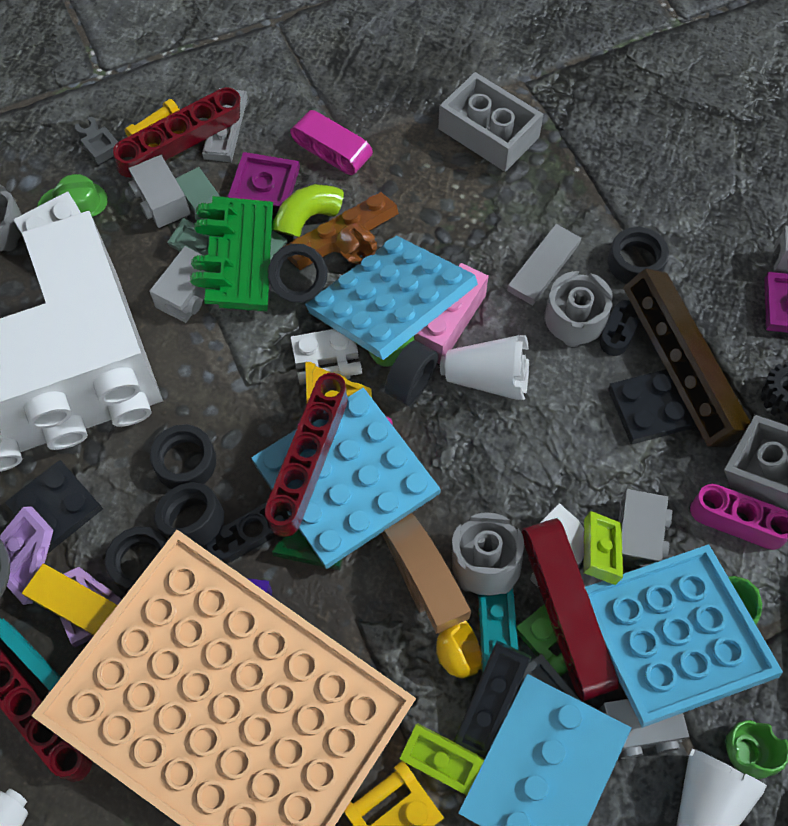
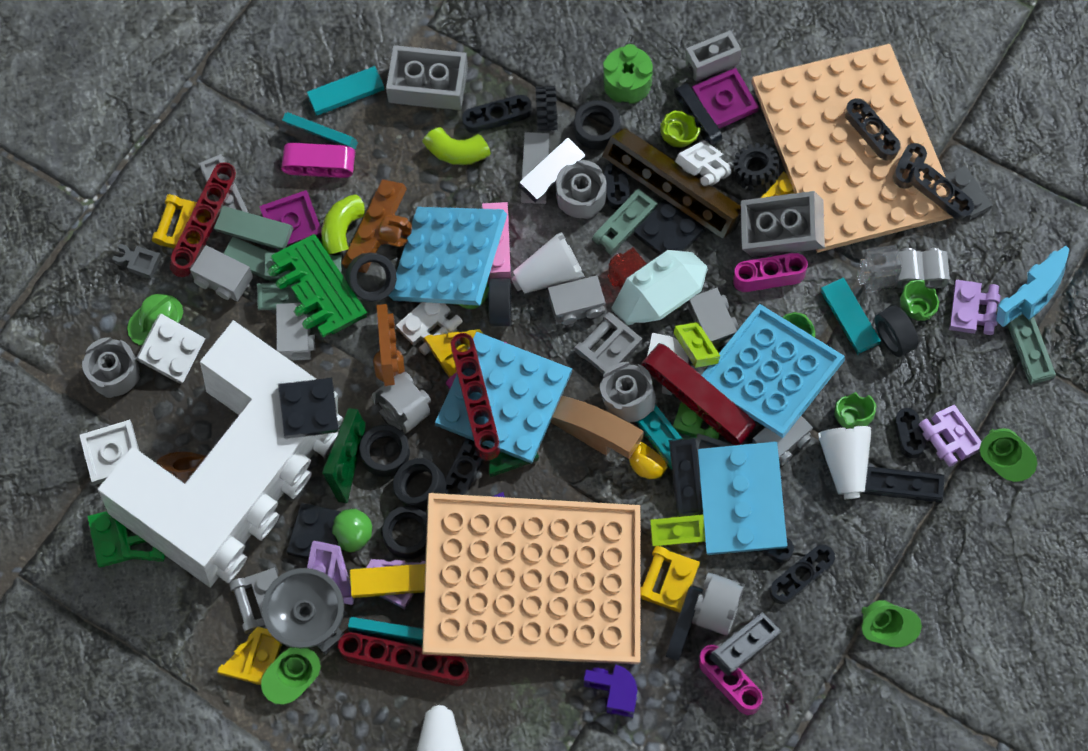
camera: 30 degrees left, 5 degrees up
(83, 520) = (352, 529): none -> bright green hair
(94, 348) = (308, 408): none -> black plate
(130, 437) = (344, 455): none -> dark green wing
(221, 167) = (253, 228): none -> sand green tile
(234, 417) = (402, 403): none -> light grey brick
(250, 354) = (389, 360): none -> dark orange plate
(352, 116) = (319, 130): none -> teal tile
(403, 97) = (345, 90): none -> teal tile
(473, 204) = (456, 151): none -> lime cylinder
(498, 420) = (576, 300): none -> light grey brick
(506, 497) = (614, 349): none -> light grey plate
(540, 274) = (544, 175): none -> tile
(551, 187) = (512, 102): none -> black beam
(576, 419) = (623, 266): none -> clear red brick
(593, 209) = (546, 108): none -> black tyre
(602, 458) = (660, 287): none -> light aqua wedge
(605, 368) = (624, 221): none -> sand green plate
(703, 223) = (627, 74): none -> bright green brick
(726, 306) = (679, 129): none -> lime hair
(737, 353) = (705, 160): none -> white plate
(757, 304) = (693, 107): none -> black beam

